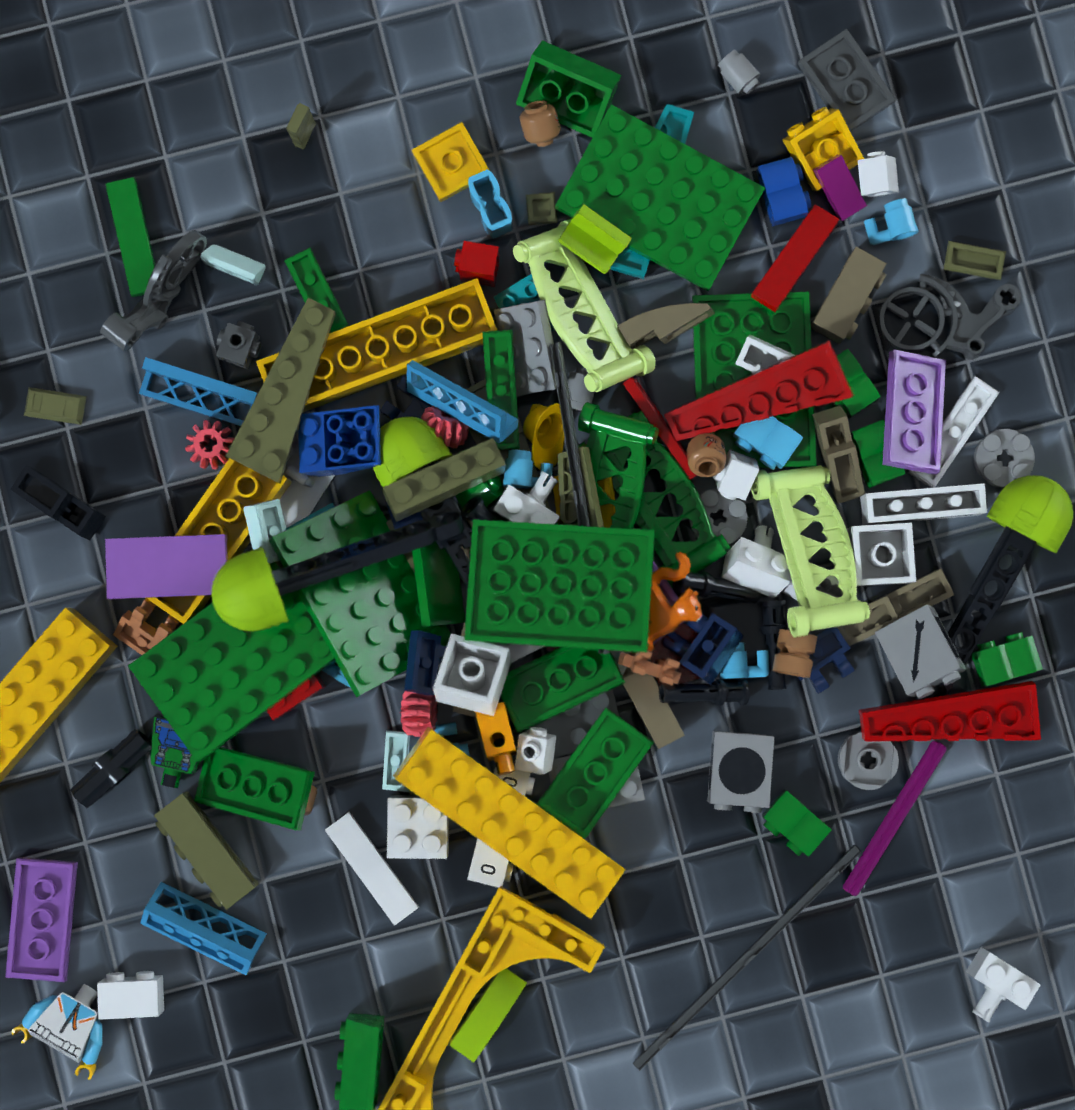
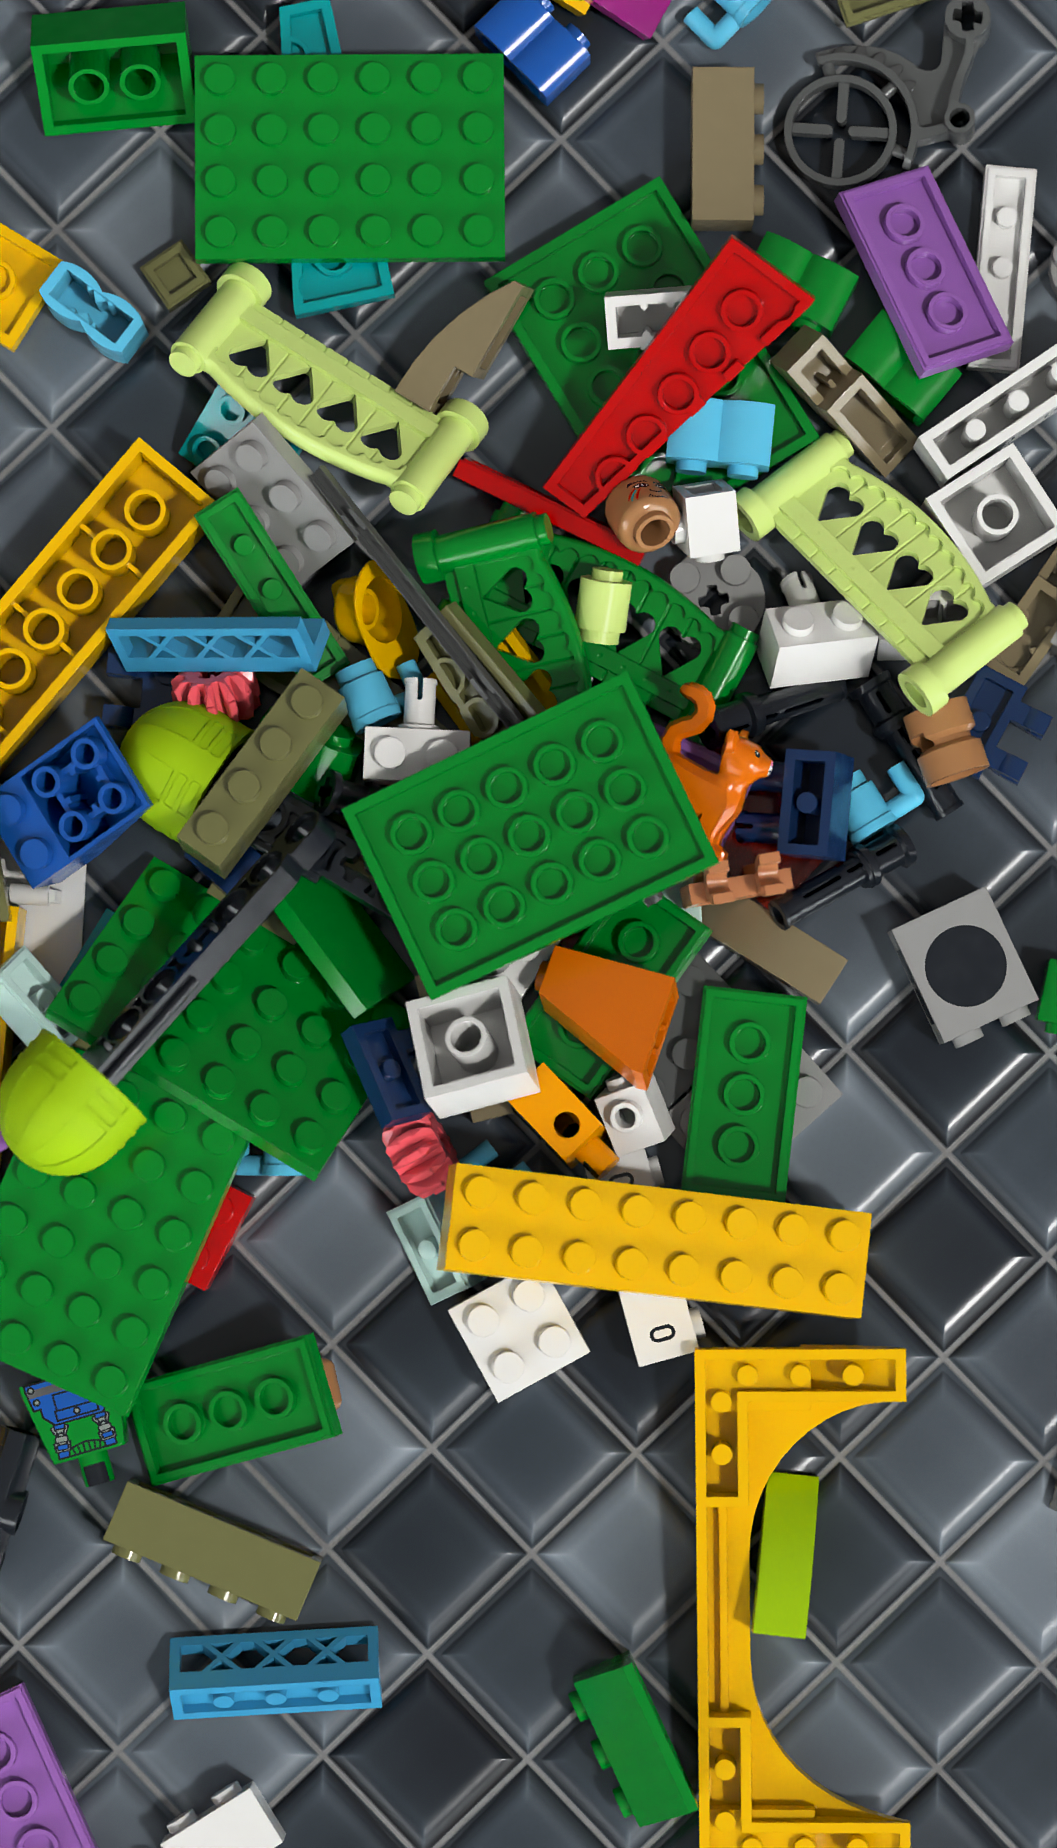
camera: 30 degrees left, 0 degrees up
(371, 868) = (483, 1435): white tile -> none
(477, 261) = (124, 412): red brick -> none
(540, 123) = (100, 145): medium nougat head -> none
(552, 693) = (610, 1008): none -> orange slope
(578, 392) = (391, 525): light grey brick -> none
(594, 239) = (285, 277): lime panel -> none
(661, 490) = (603, 605): none -> yellowish green brick
(795, 258) = (609, 136): red tile -> none

